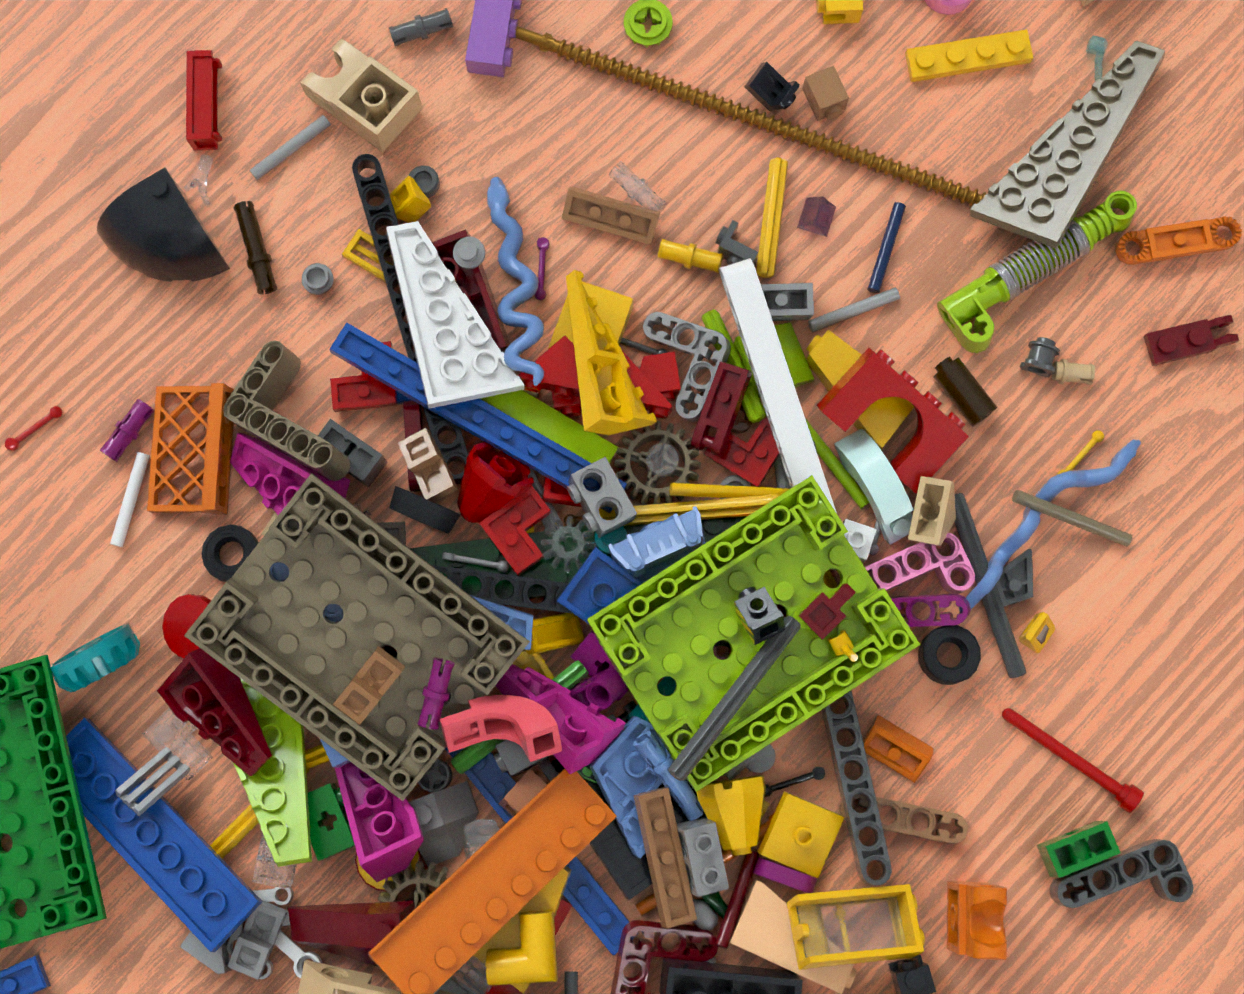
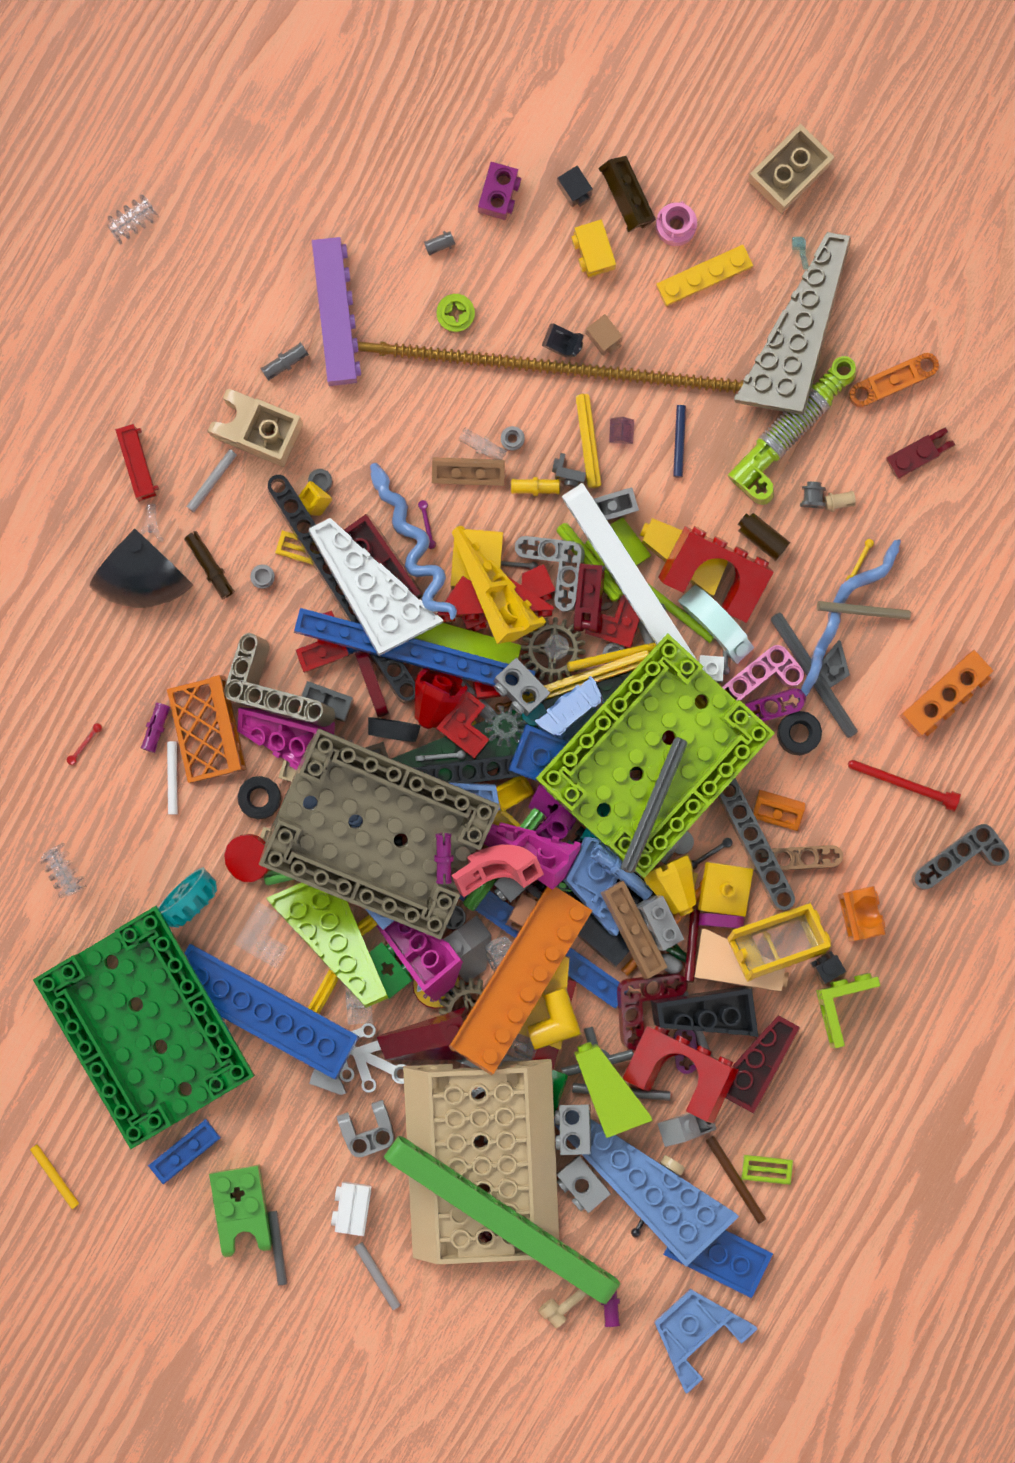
camera: 20 degrees left, 5 degrees up
(145, 771) = (264, 958): light grey tile -> none
(219, 707) = (283, 906): dark red wedge -> none
(257, 940) = (361, 1065): light grey slope -> none
(369, 685) = (395, 865): medium nougat slope -> none
(427, 465) = (387, 696): medium nougat slope -> none
(469, 252) = (374, 531): light grey plate -> none
(677, 181) = (512, 430): none -> light grey plate
(759, 623) = (660, 747): brick -> none
(824, 613) = (701, 728): dark red plate -> none
(843, 645) = (720, 748): yellow hand -> none
(854, 309) = (667, 495): light grey bar -> none
(933, 511) = (761, 633): tan slope -> none
(1037, 632) = (859, 700): yellow slope -> none
(1078, 849) = (923, 846): green brick -> none
(1197, 625) = (971, 664): none -> orange brick

